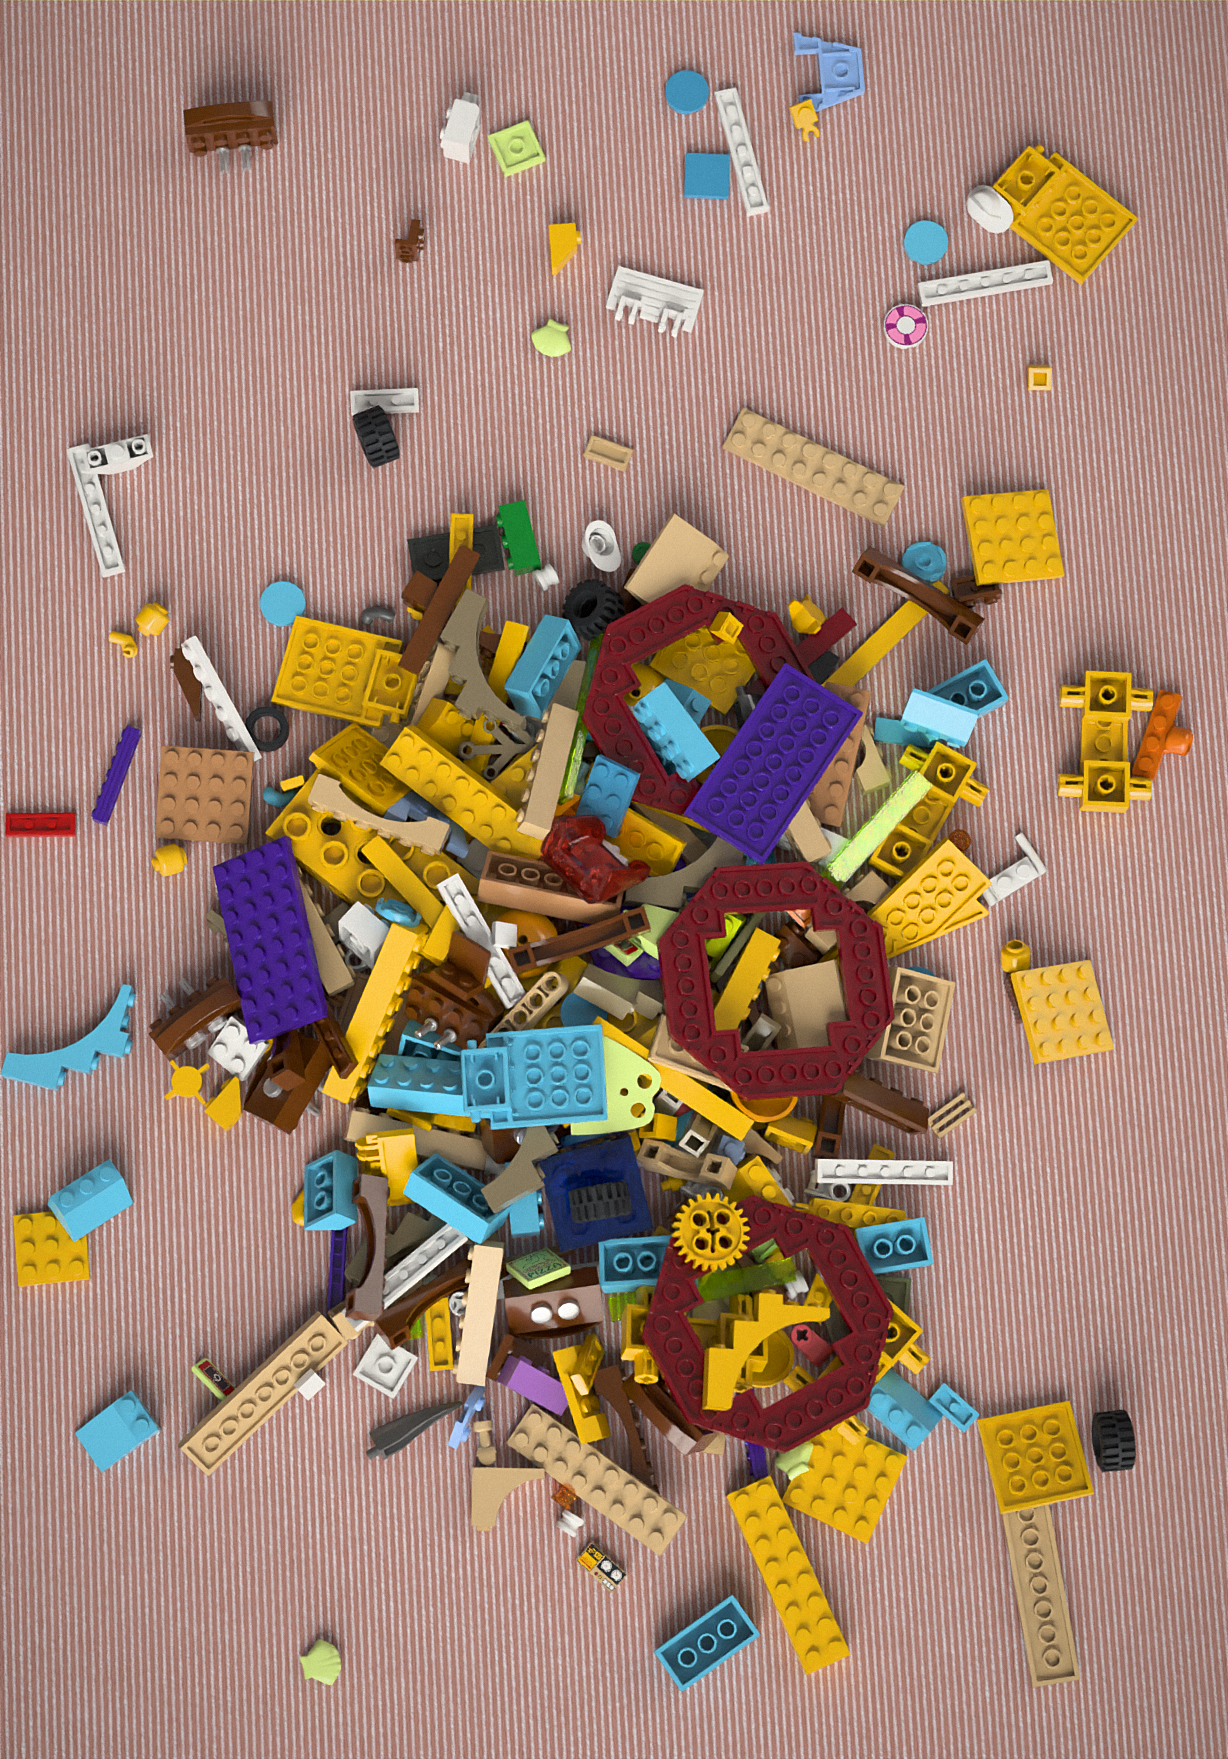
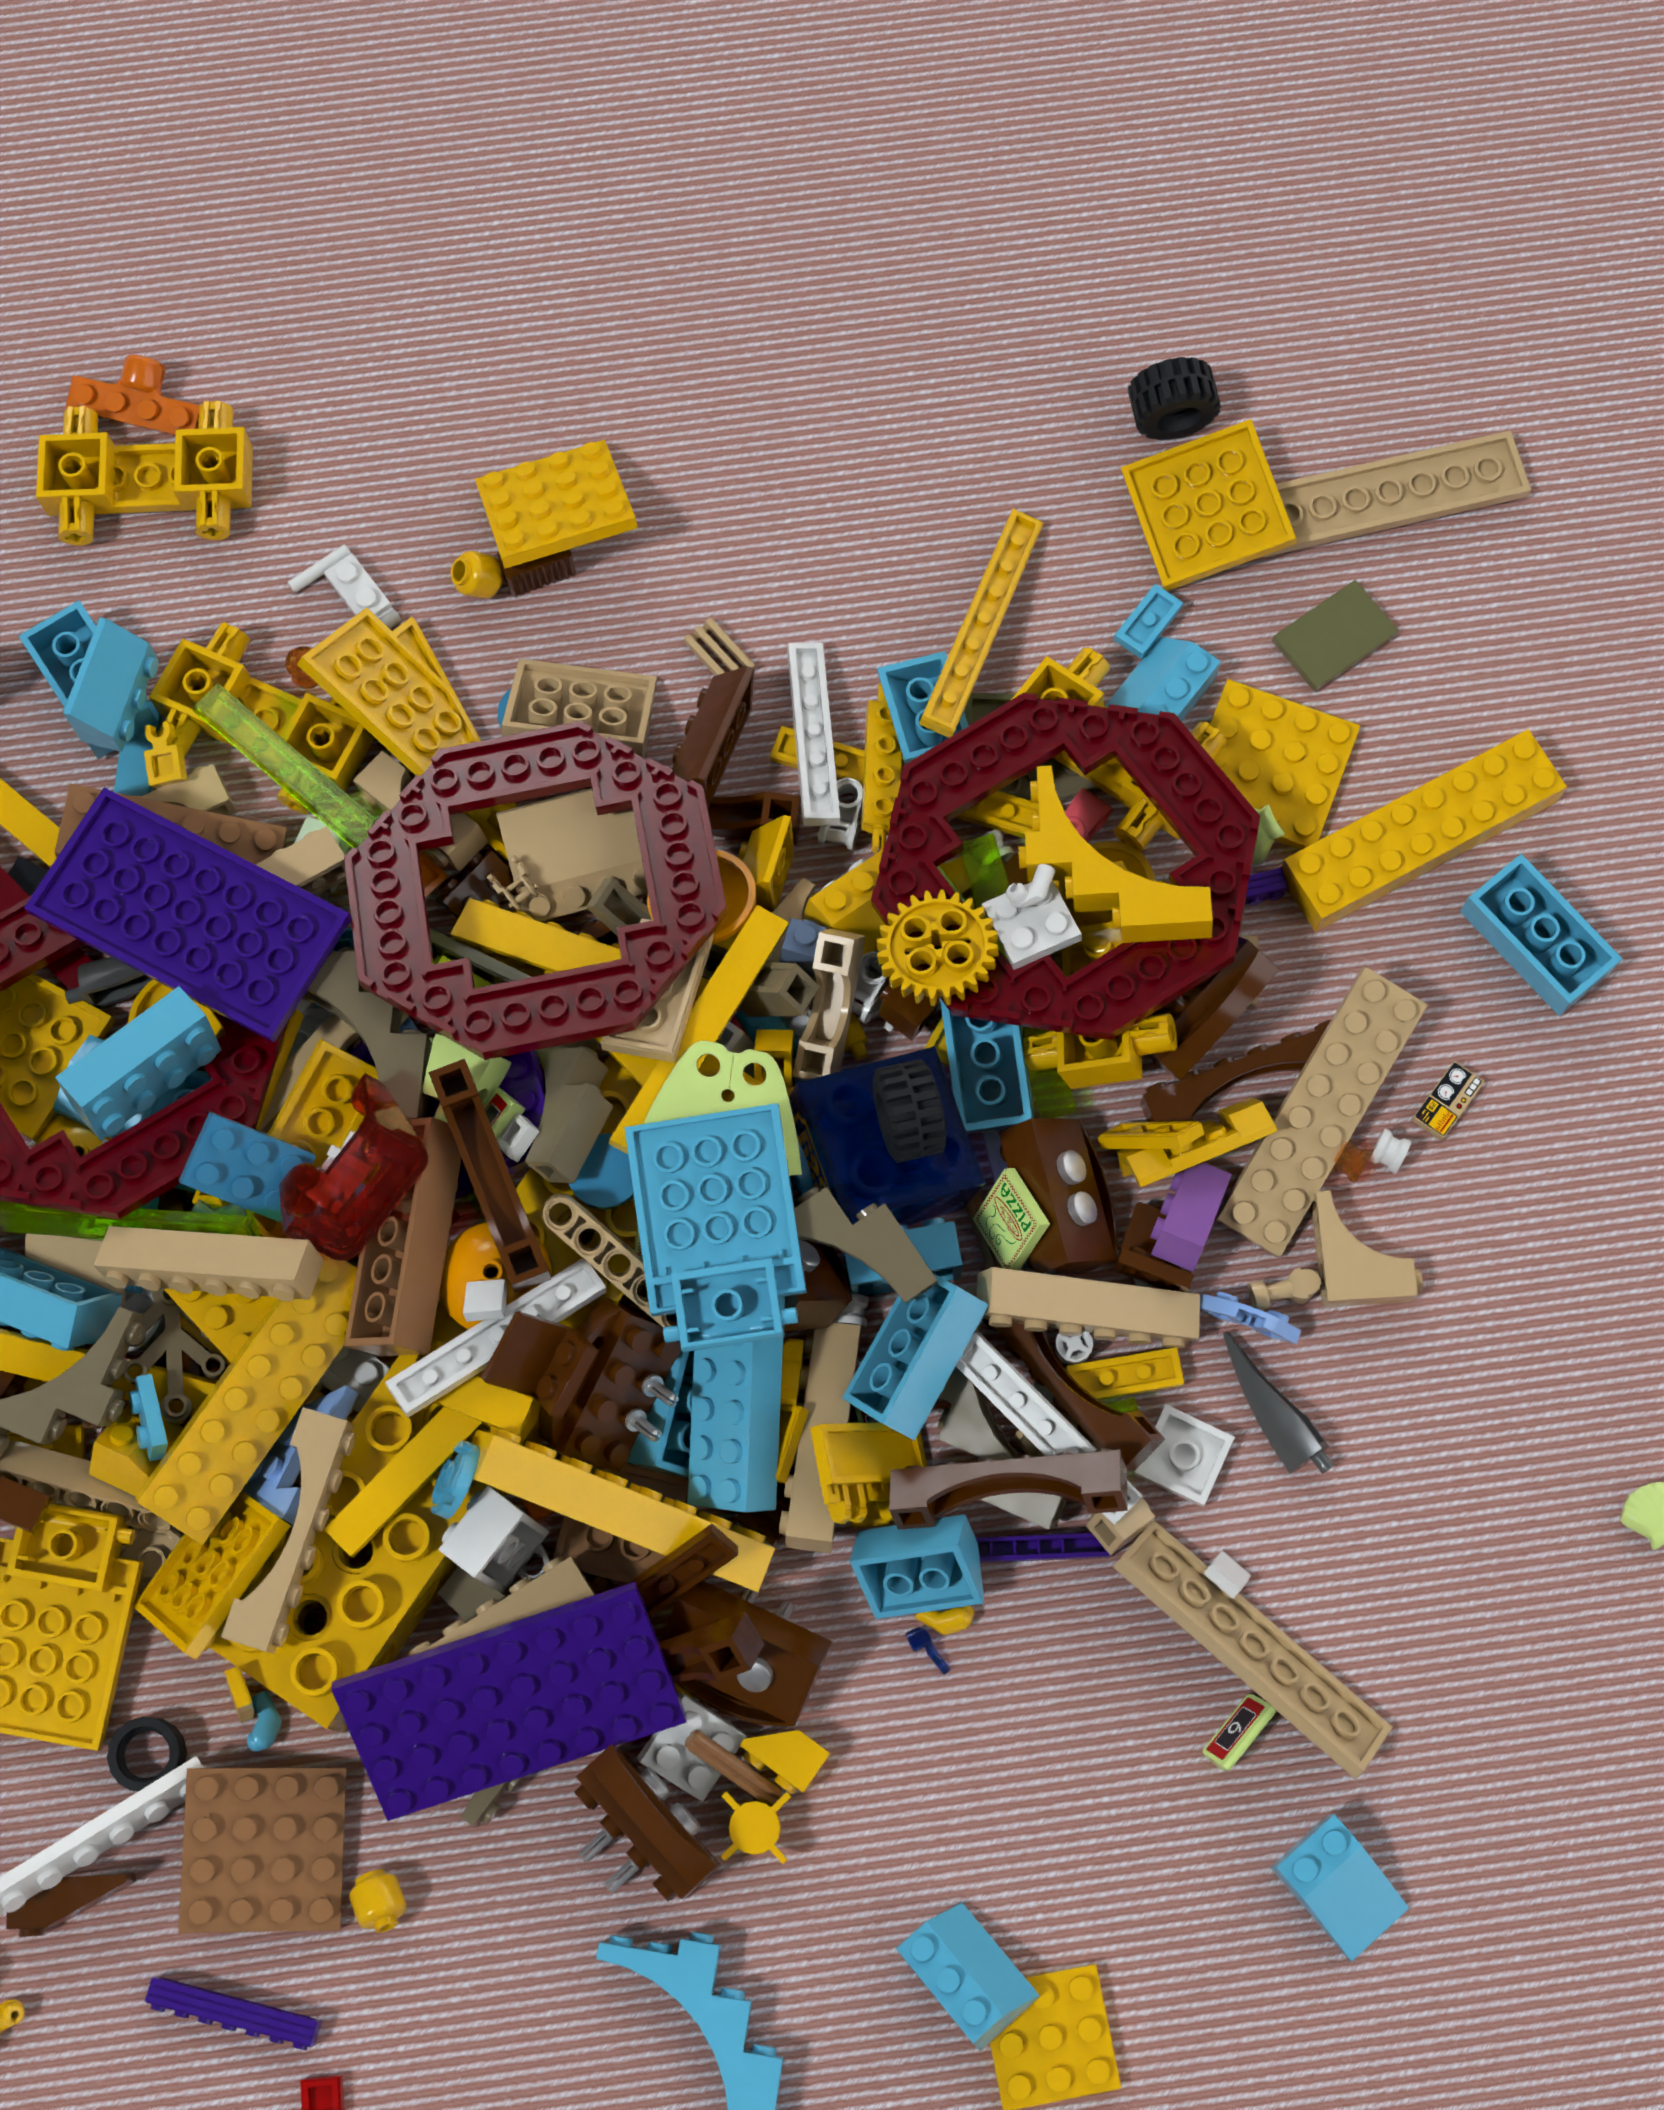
camera: 85 degrees left, 5 degrees down
(222, 1071) = (733, 1768): none -> medium nougat axle
(289, 1192) = (919, 1639): none -> clear blue hand
(450, 735) = (145, 1403): none -> medium azure plate
(607, 960) = (517, 1137): none -> white tile
(724, 1294) = (1034, 930): none -> white plate
(740, 1296) = (1034, 892): none -> white arm
(782, 979) = (515, 901): none -> tan piece
(891, 750) = (165, 761): none -> yellow plate
(935, 1536) = (1335, 636): none -> olive tile
(955, 1291) = (981, 624): none -> yellow tile

